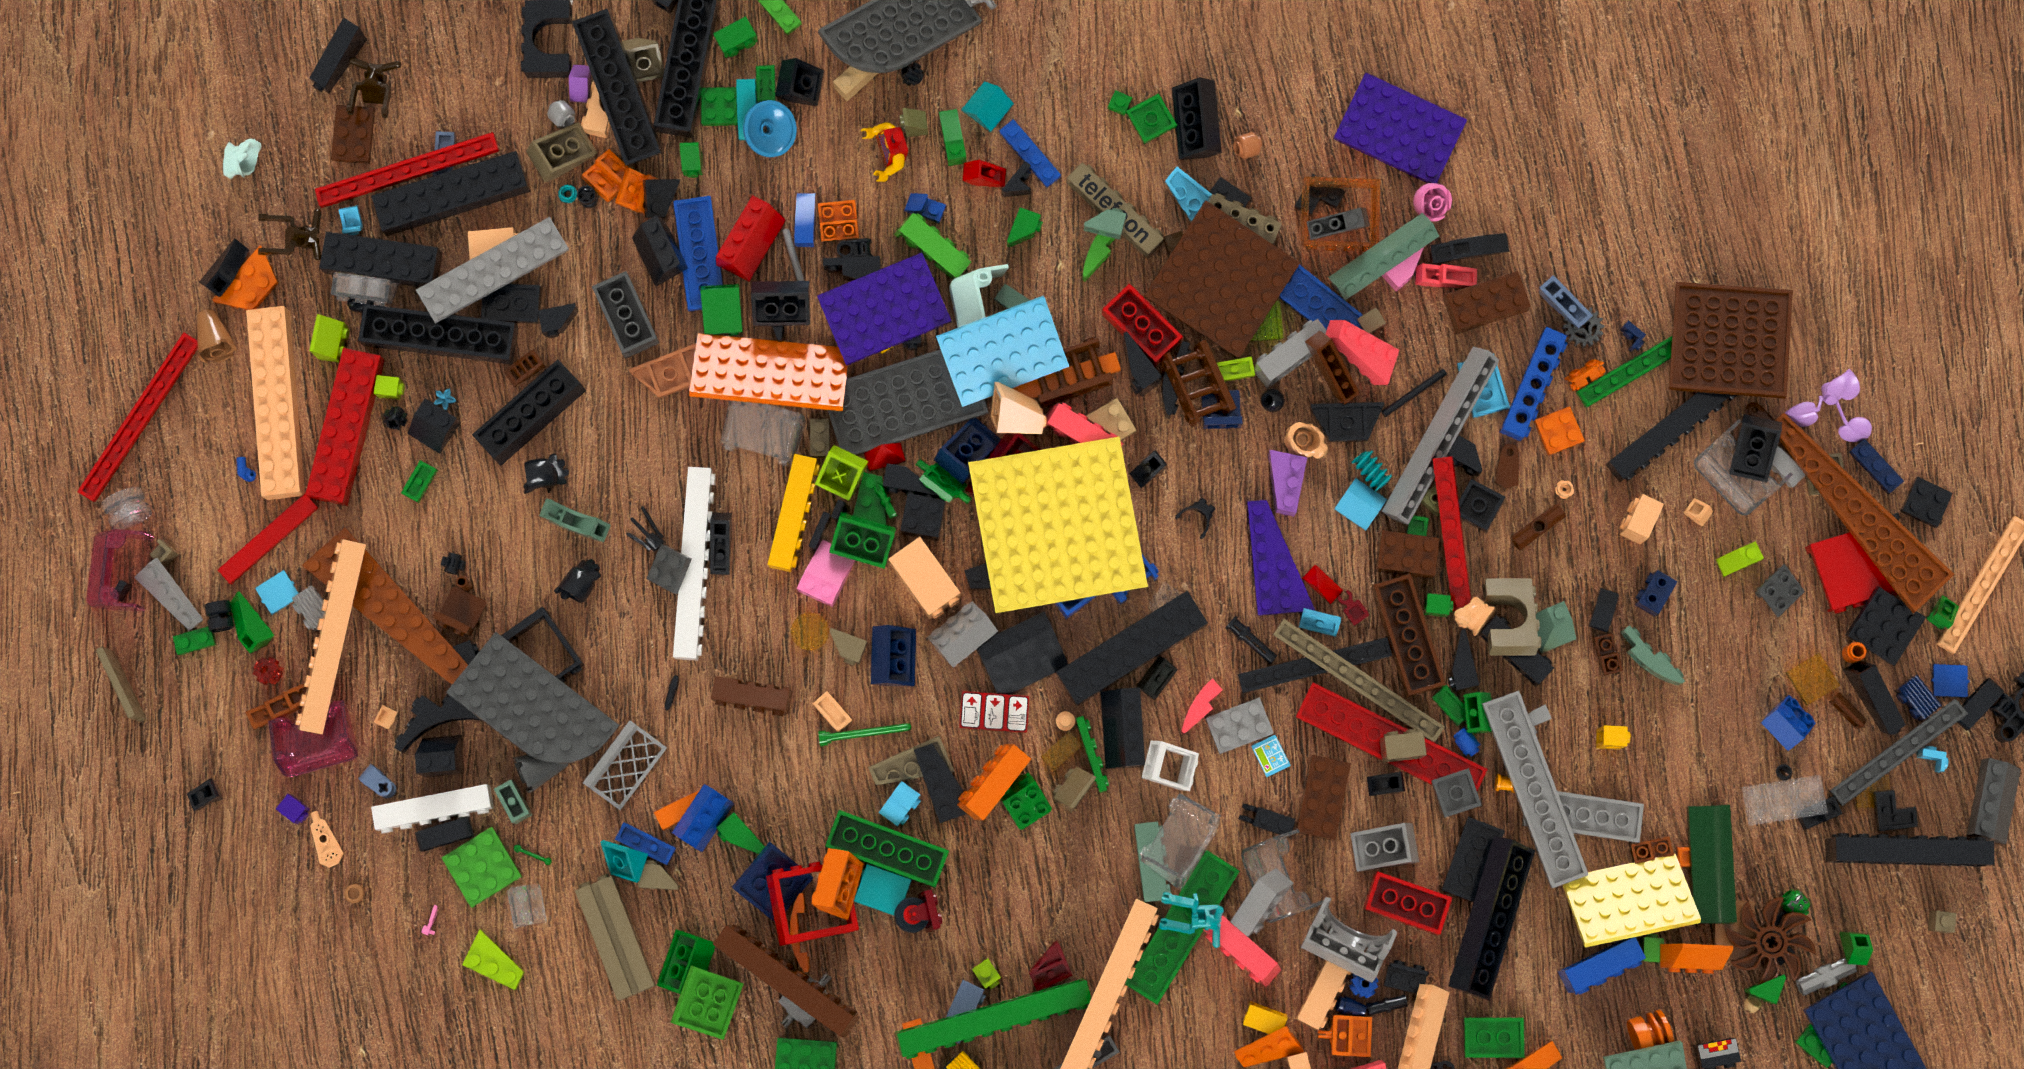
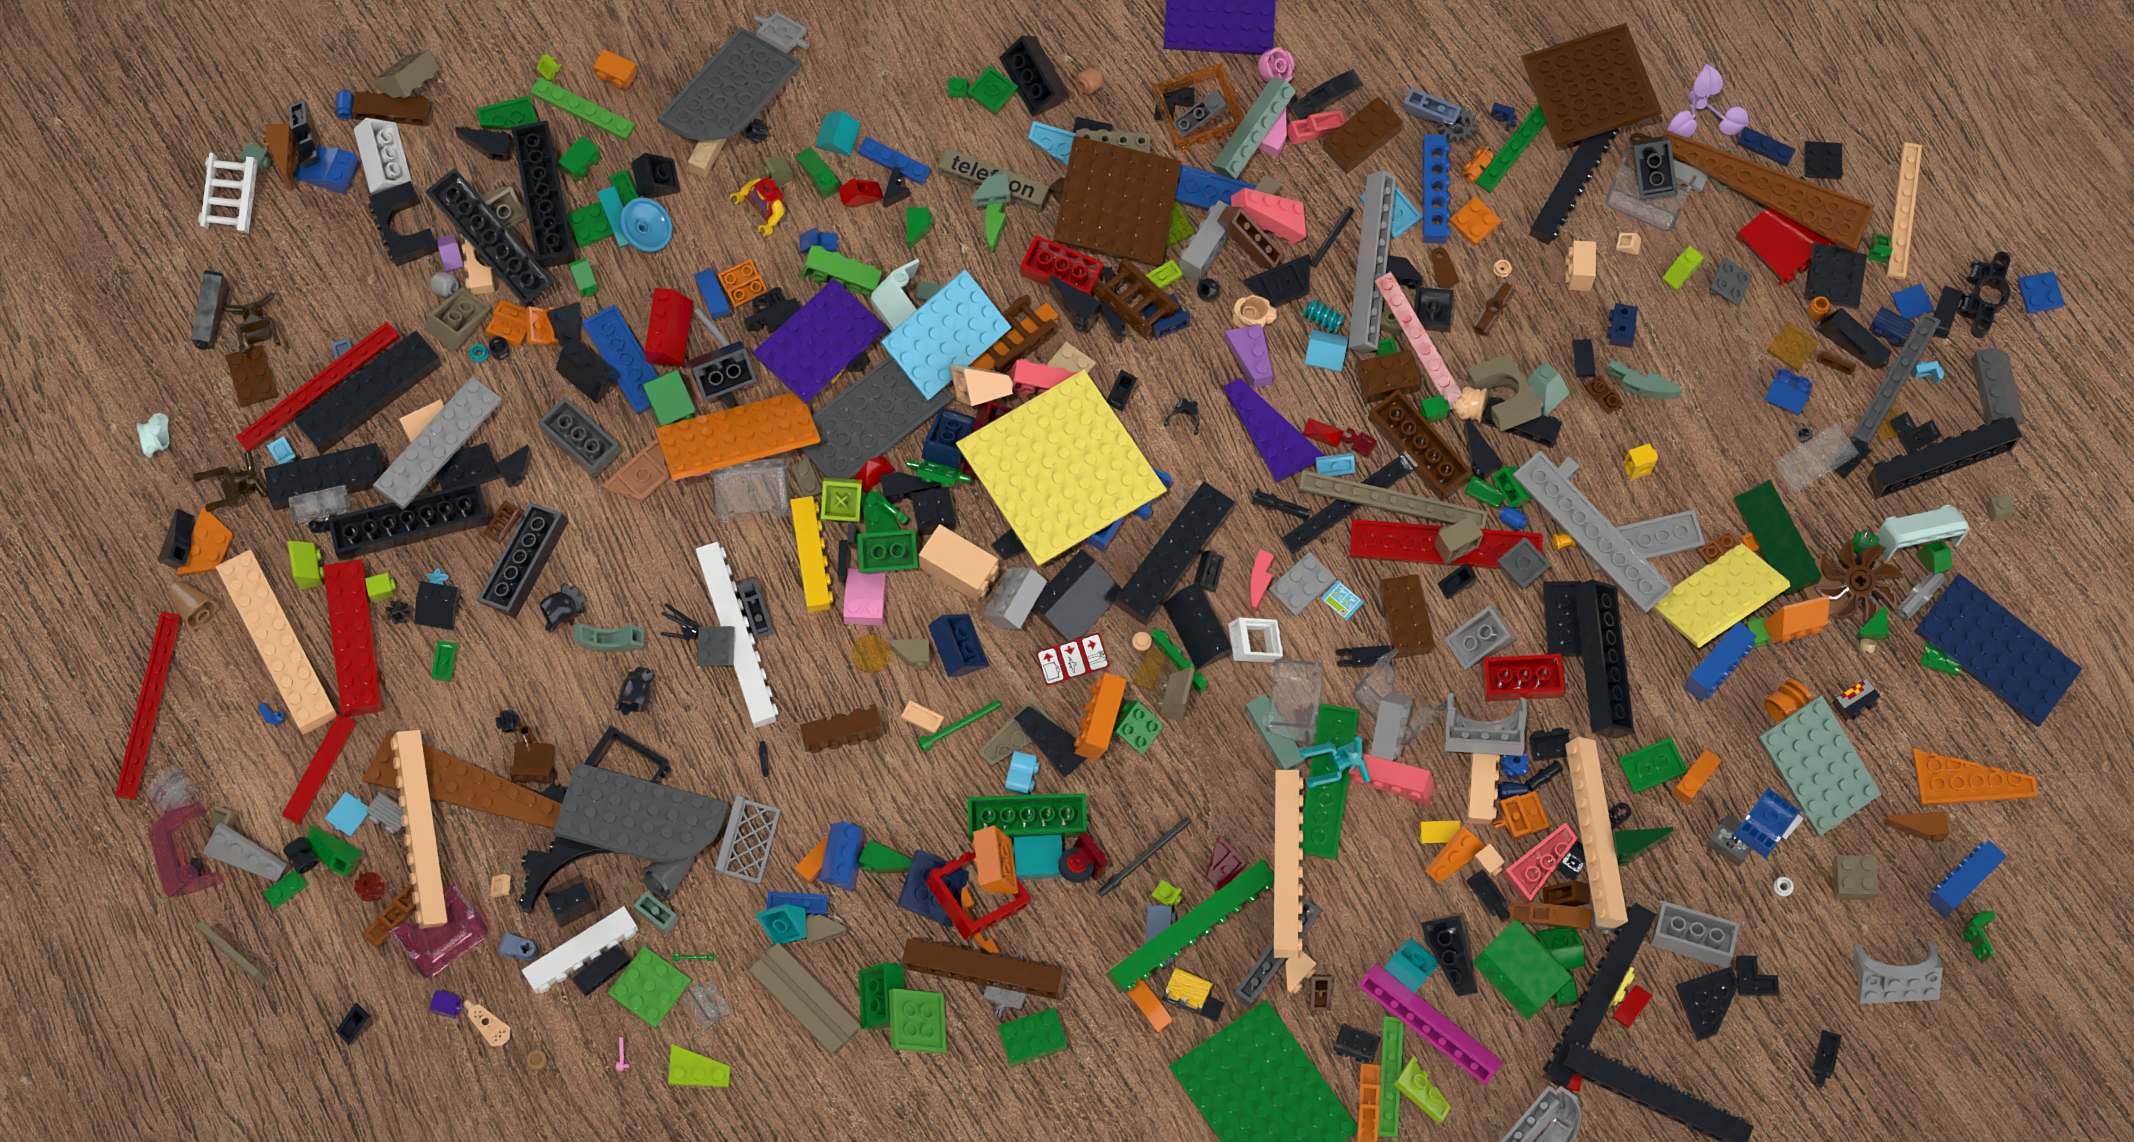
camera: 25 degrees left, 10 degrees down
(944, 941) = (1115, 881): none -> pearl dark grey bar
(1854, 916) = (1922, 528): none -> light aqua windscreen

